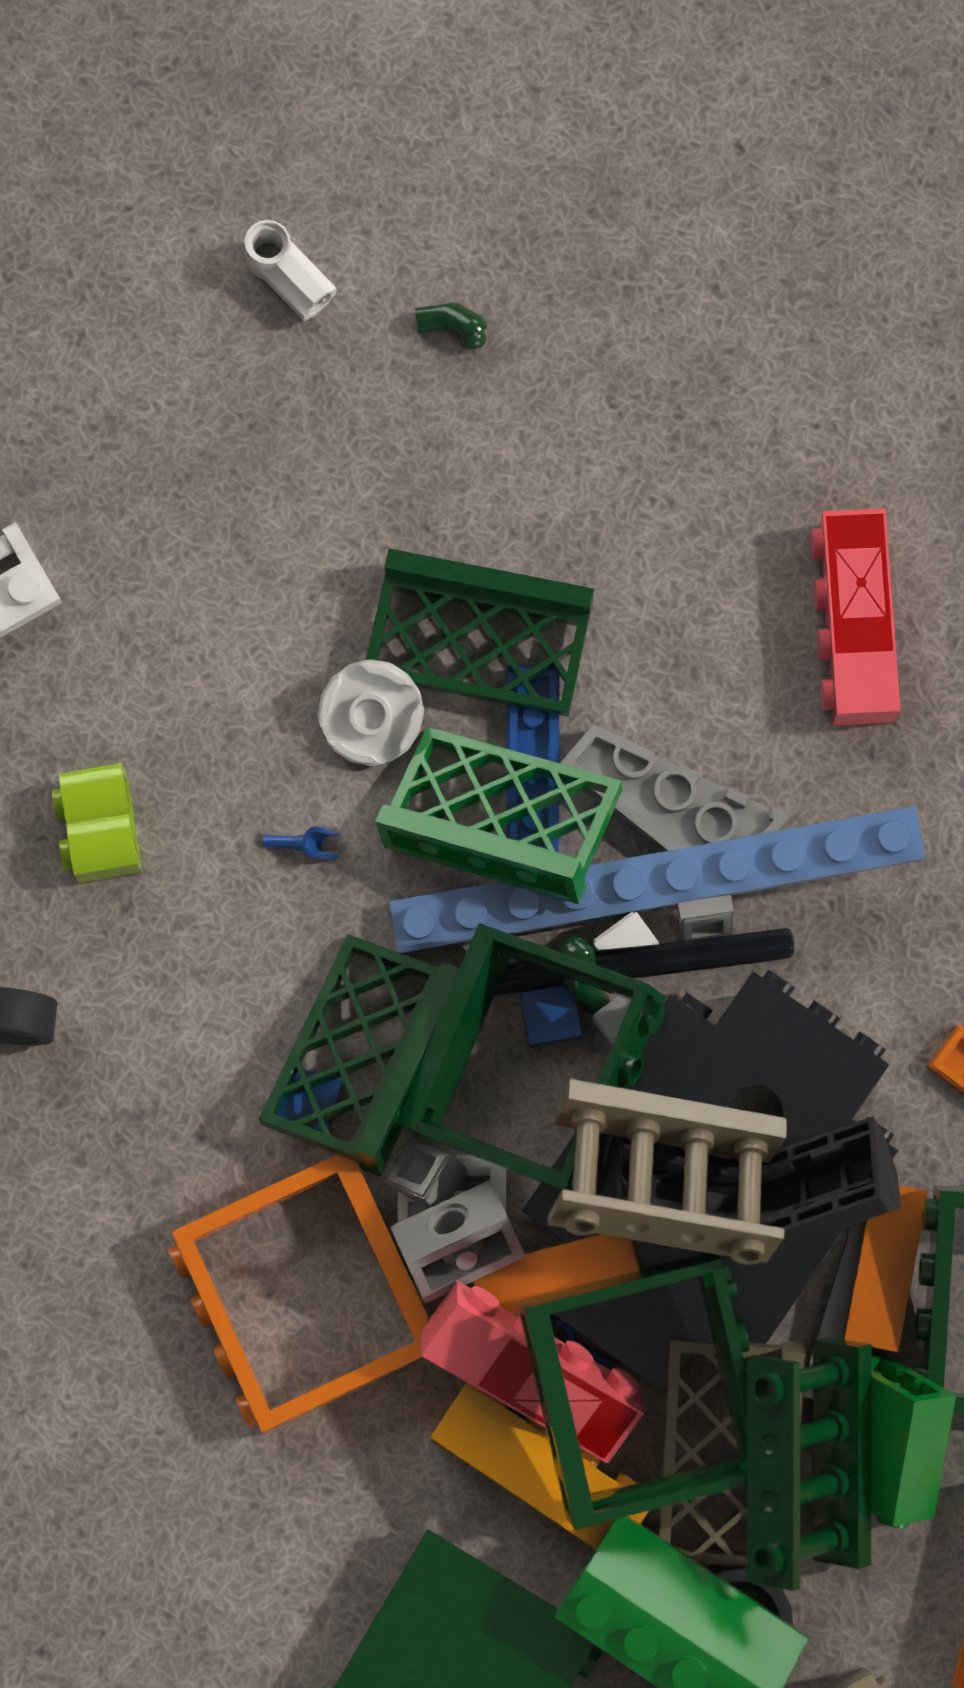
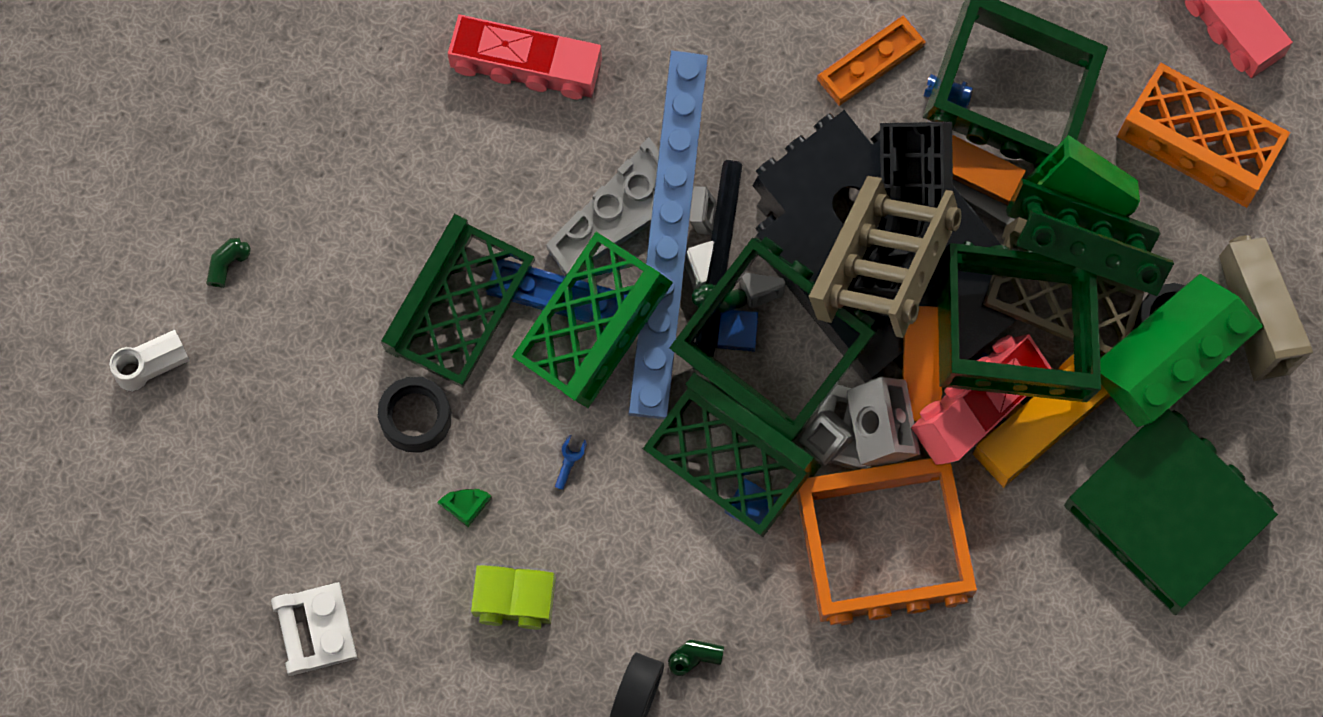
camera: 75 degrees left, 5 degrees down
(84, 1076) = (691, 654): none -> dark green arm
(208, 727) = (465, 504): none -> green tile
(317, 586) = (408, 386): none -> black tyre
(371, 712) = (491, 388): white tile -> none

